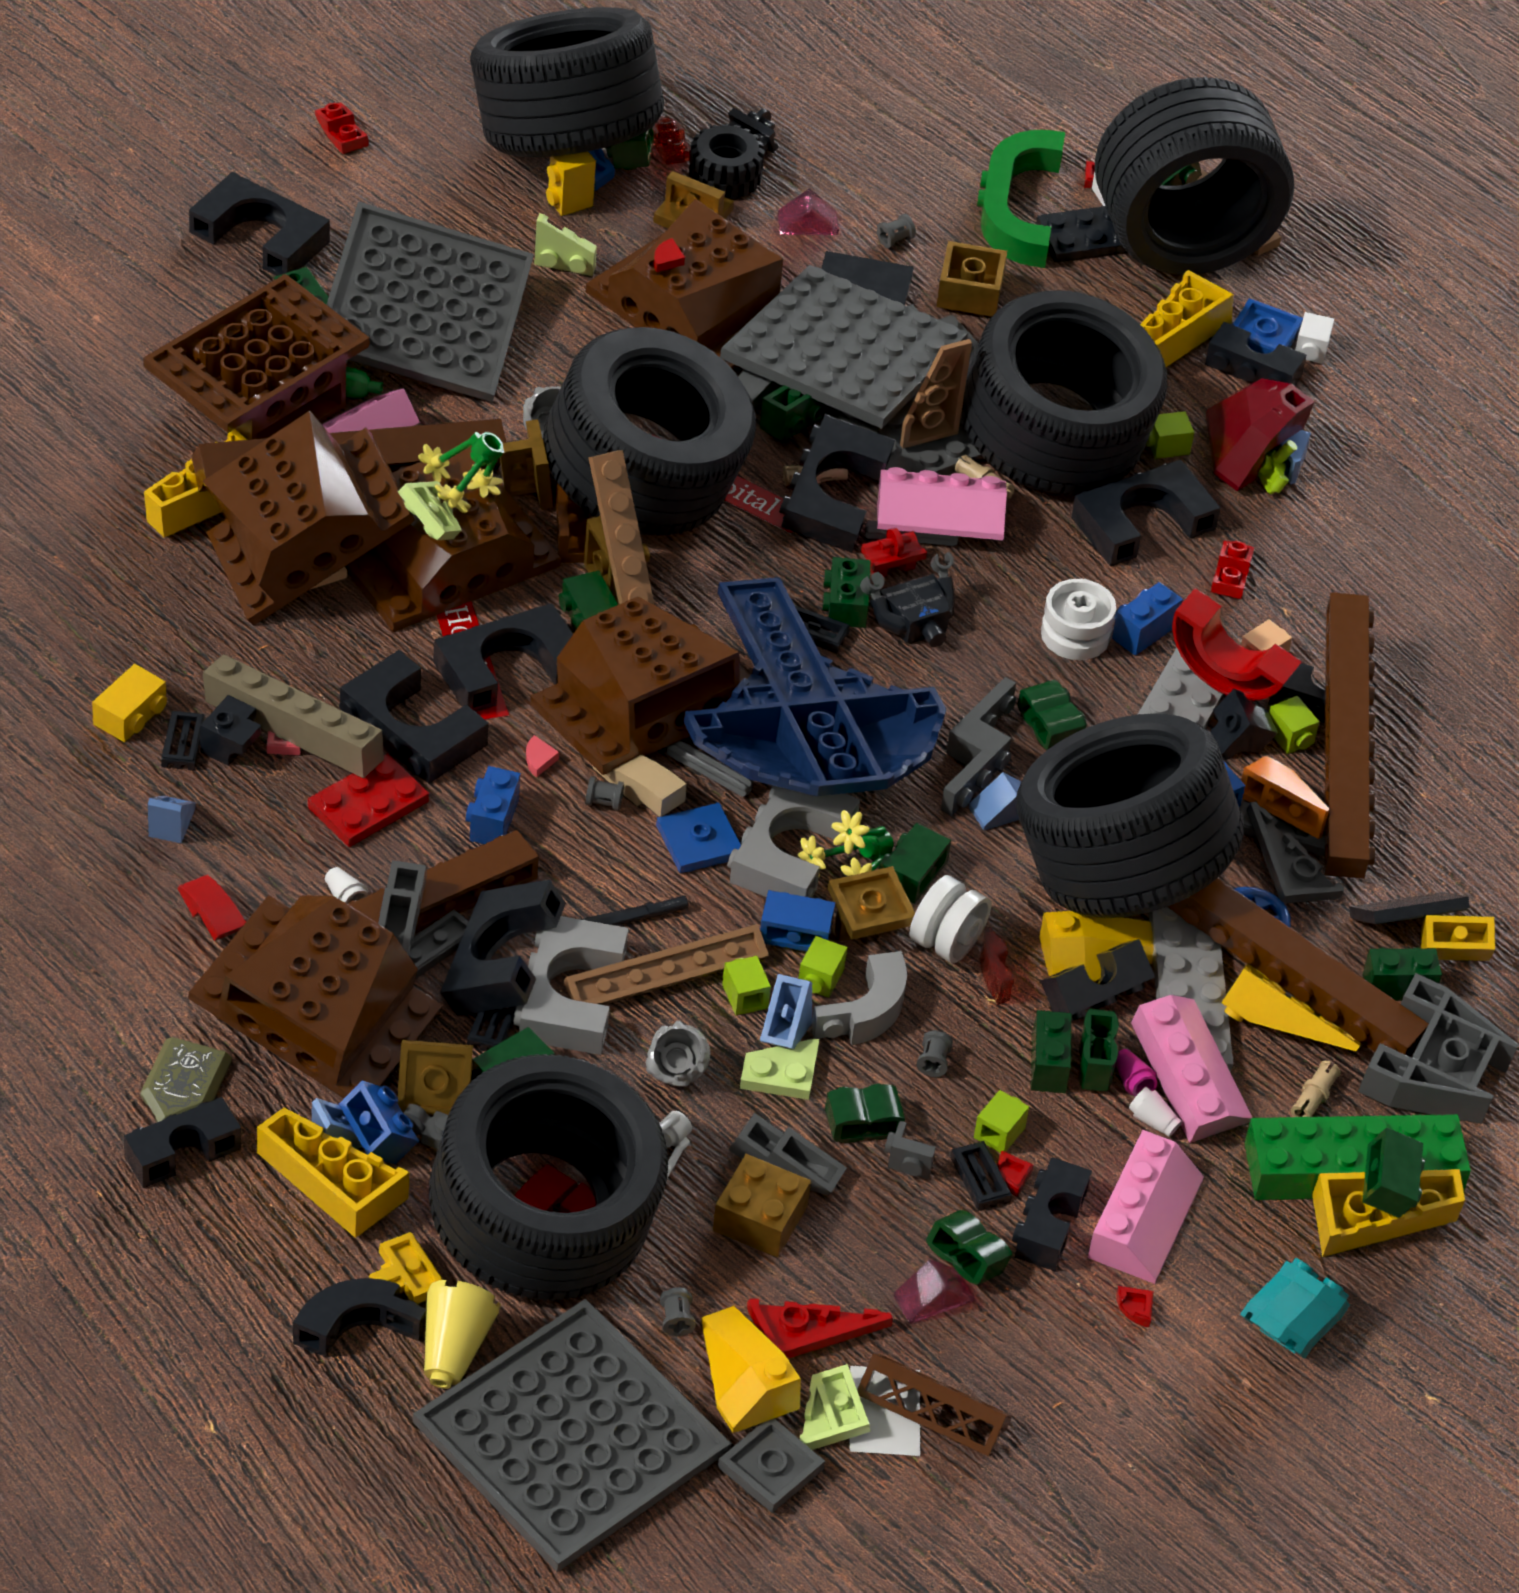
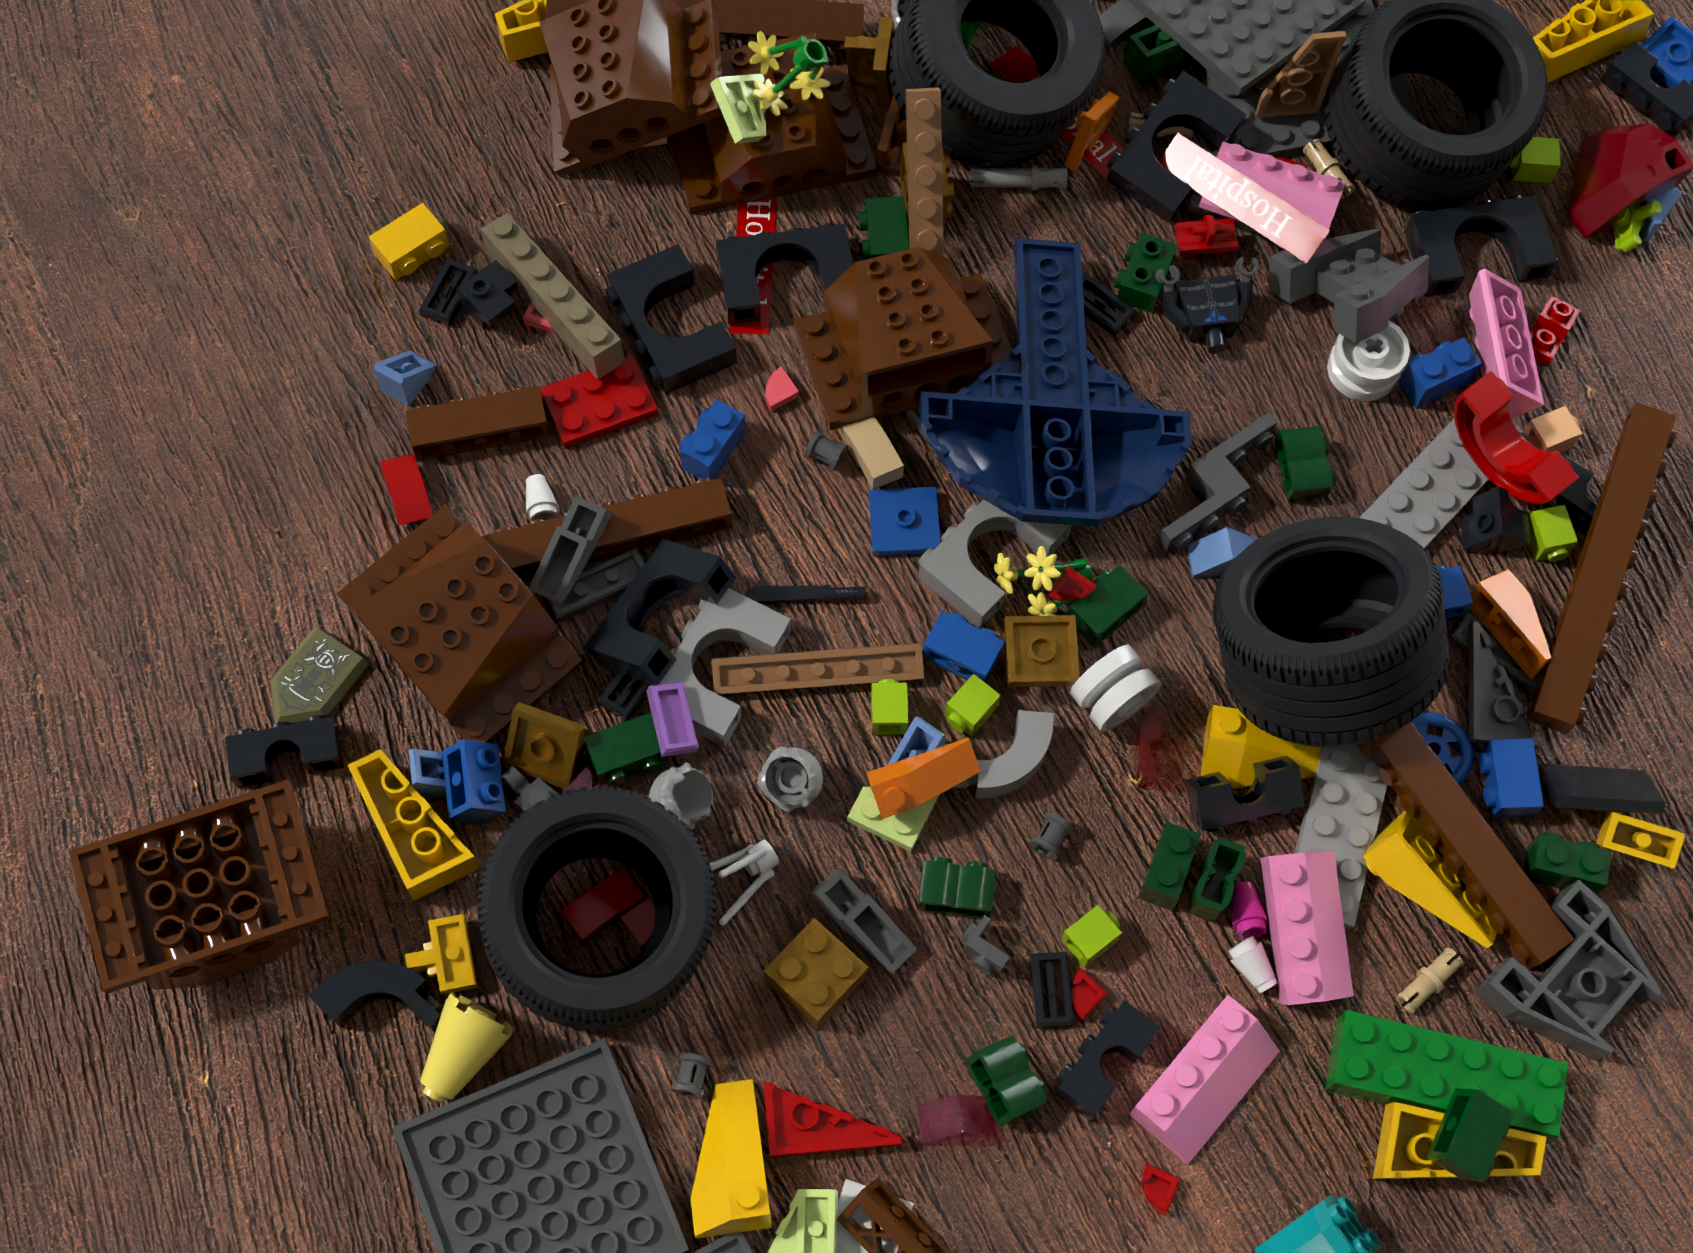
camera: 20 degrees right, 20 degrees up
(170, 1247) = (200, 892): none -> reddish brown wedge
(260, 838) = (477, 423): none -> reddish brown brick
(551, 1026) = (672, 719): none -> medium lavender tile
(699, 539) = (1019, 177): none -> light grey pin
(753, 480) = (1090, 127): none -> orange wing
(801, 1021) = (922, 777): none -> orange slope
(878, 846) = (1071, 586): none -> red tile
(919, 508) = (1244, 198): none -> sticker
(1038, 554) = (1353, 277): none -> dark grey wedge
(1188, 567) = (1505, 340): none -> bright pink slope
(1329, 917) = (1511, 778): none -> blue brick

